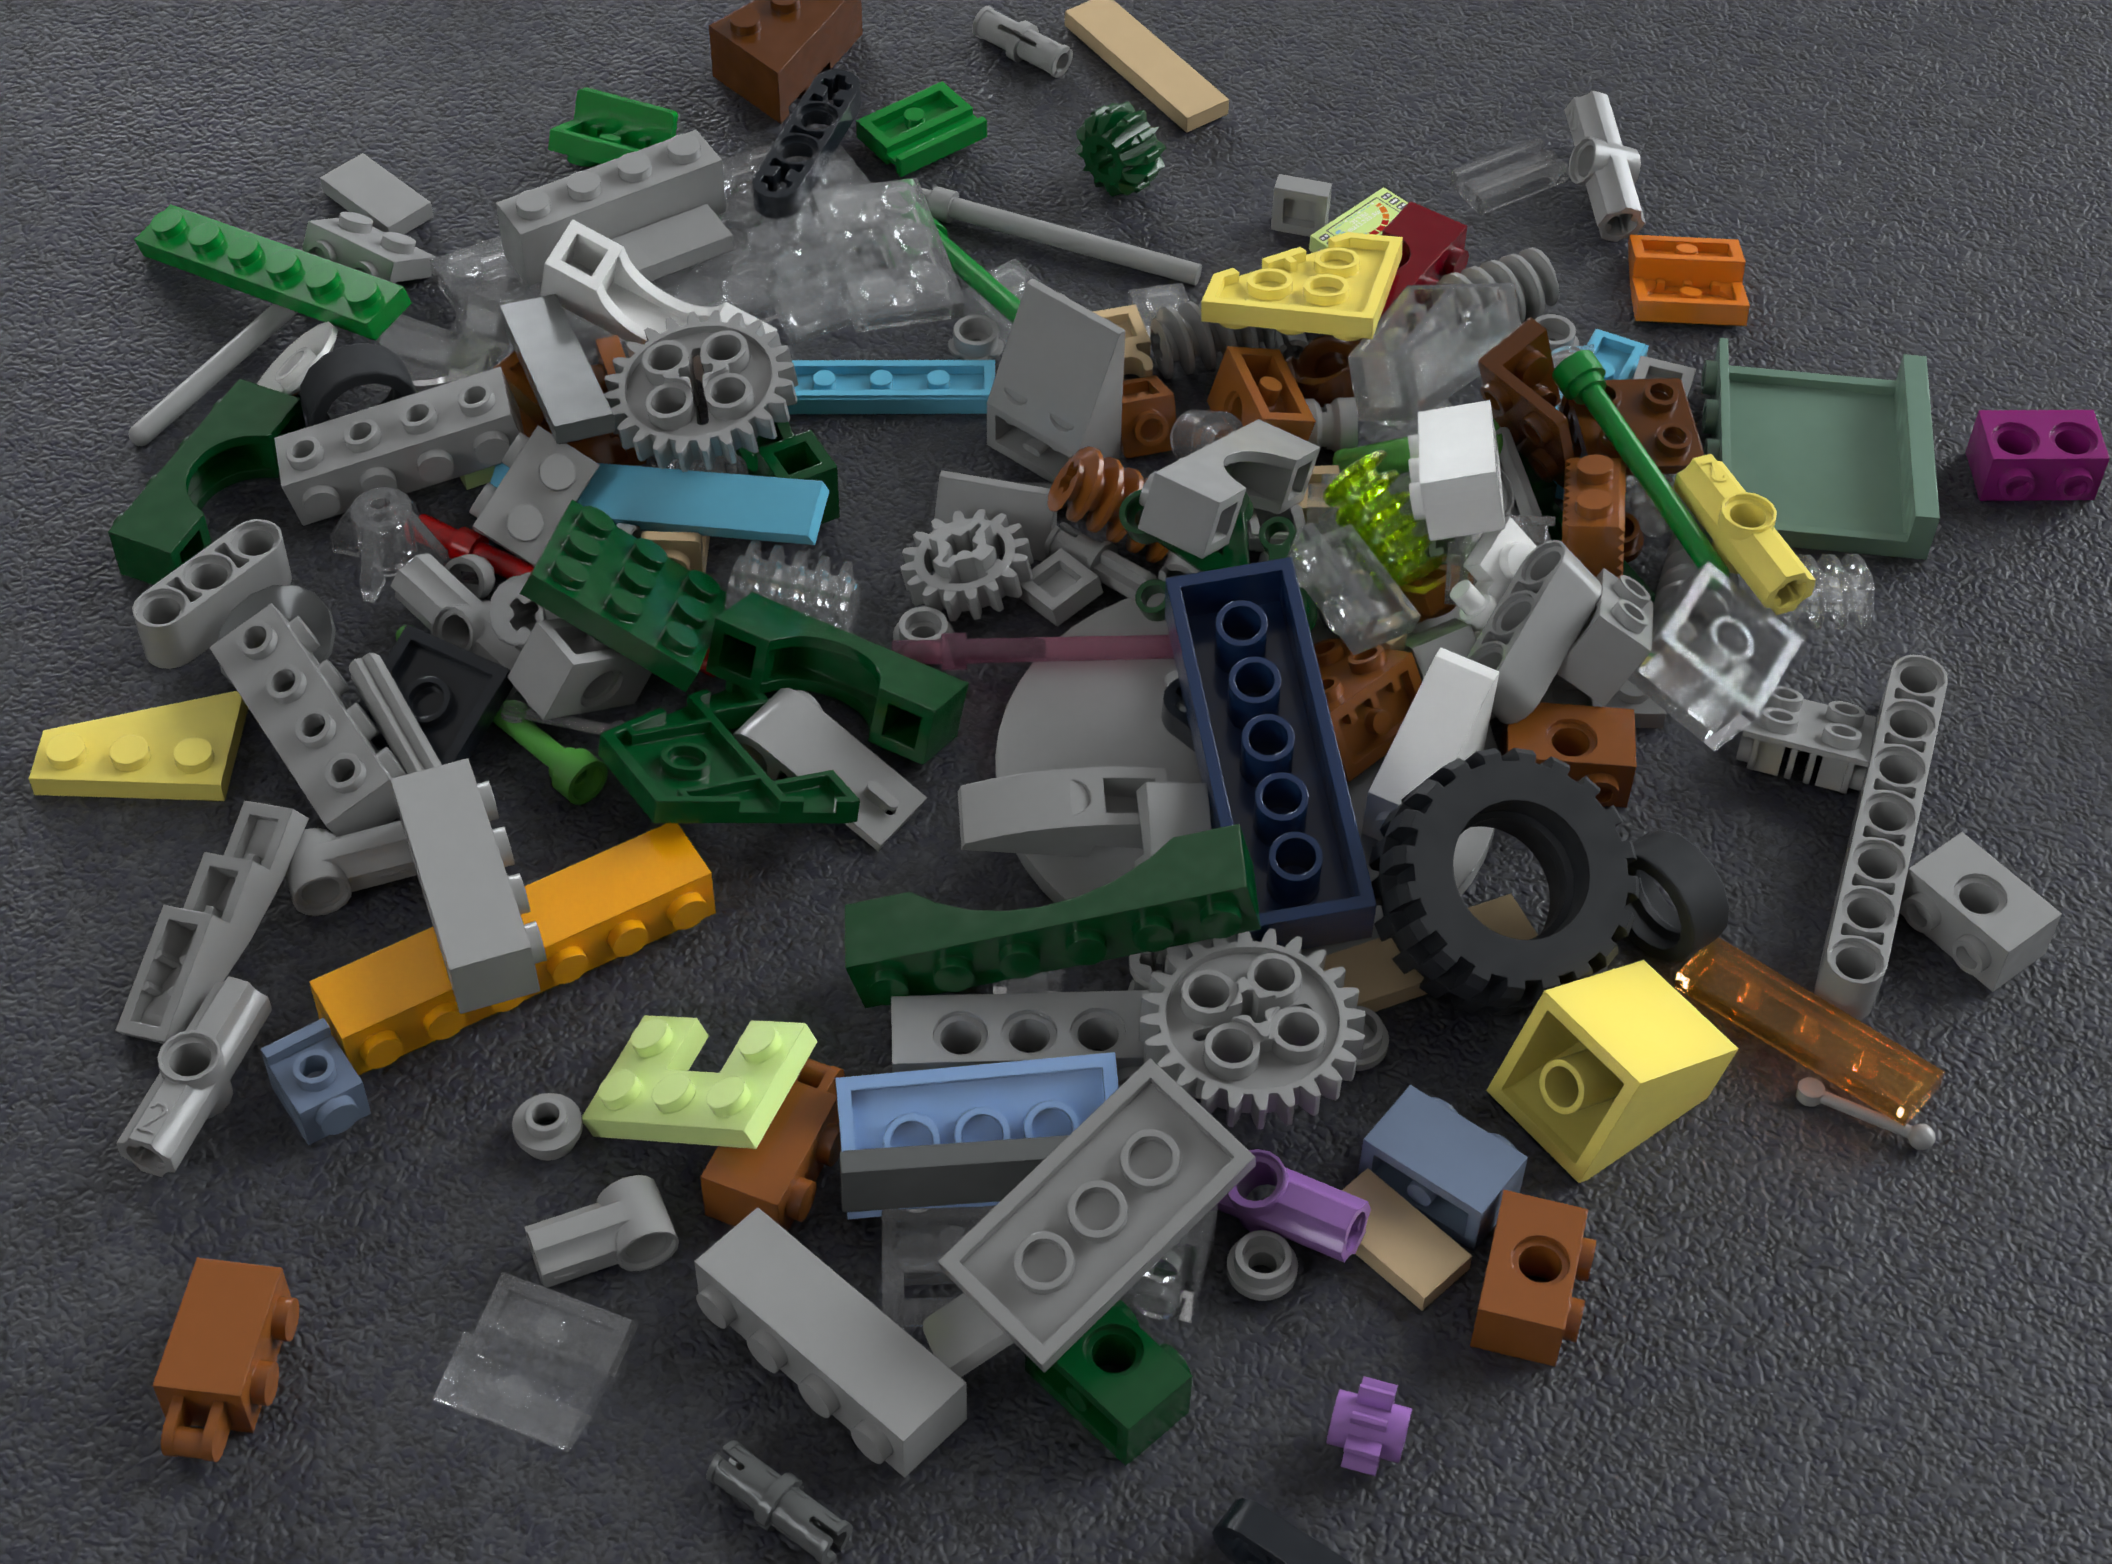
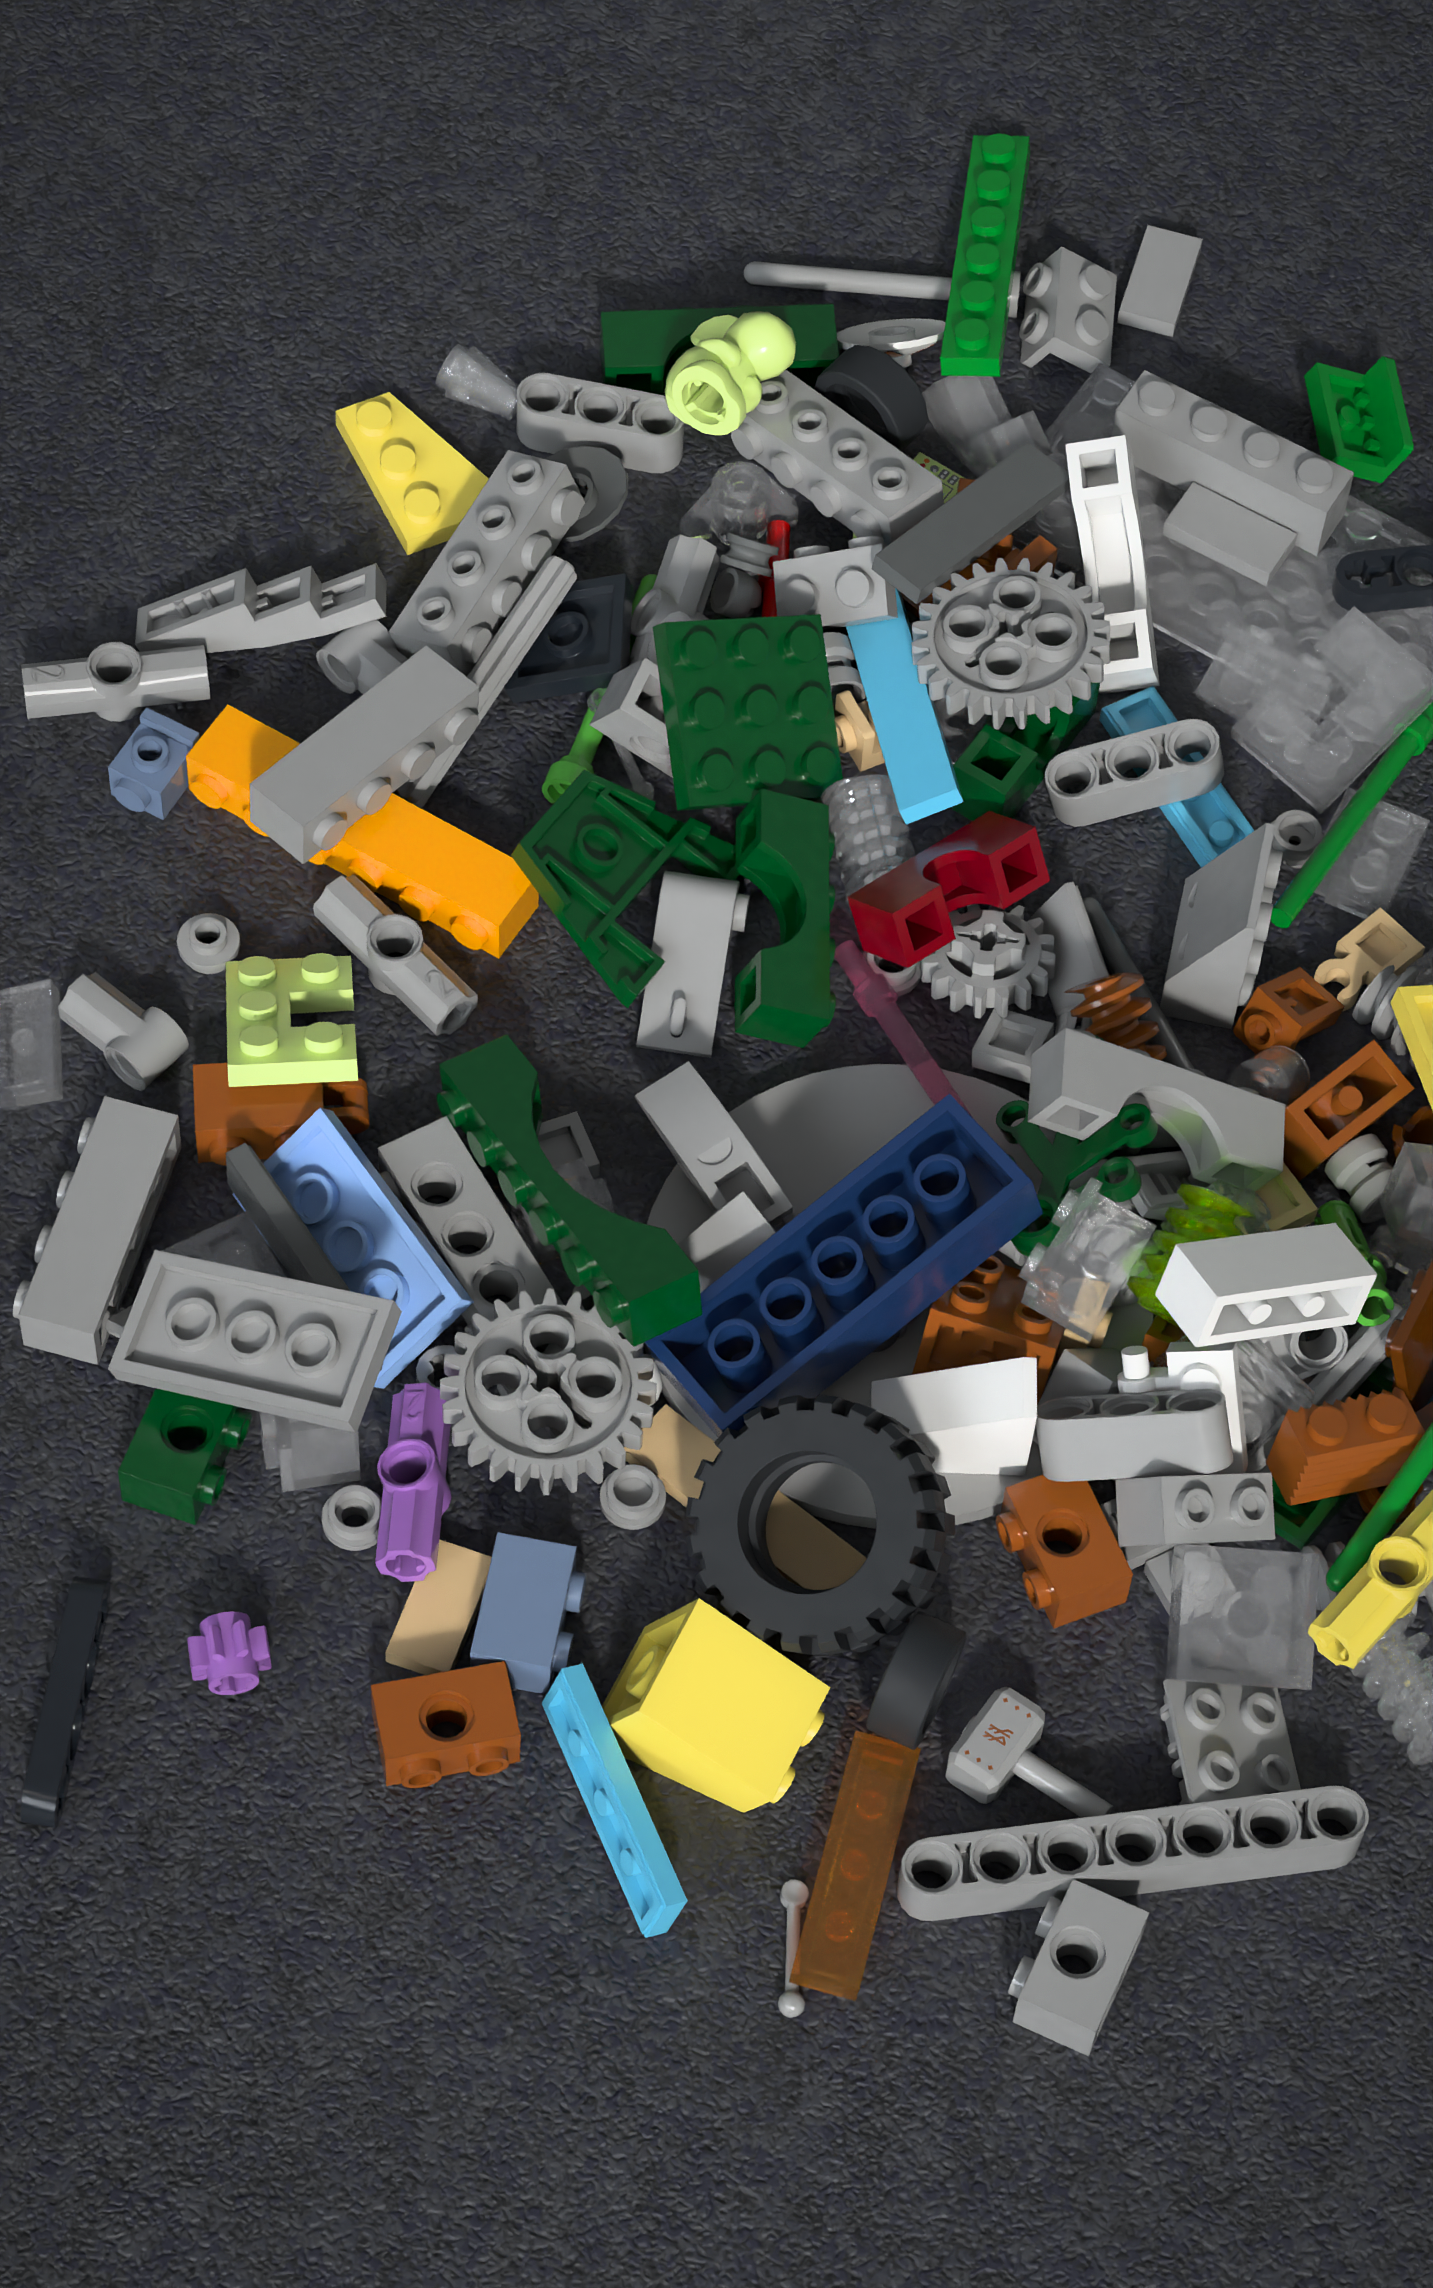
camera: 60 degrees right, 10 degrees up
(90, 661) = (477, 382): none -> clear cone
(266, 466) = (722, 374): none -> yellowish green animal
(450, 538) = (749, 554): none -> dark grey bush
(671, 976) = (415, 978): none -> light grey piece
(864, 372) = (1154, 749): none -> light grey beam
(901, 569) = (908, 908): none -> dark red arch
(1672, 1176) = (614, 1801): none -> medium azure tile
(1752, 881) = (1000, 1745): none -> light grey piece

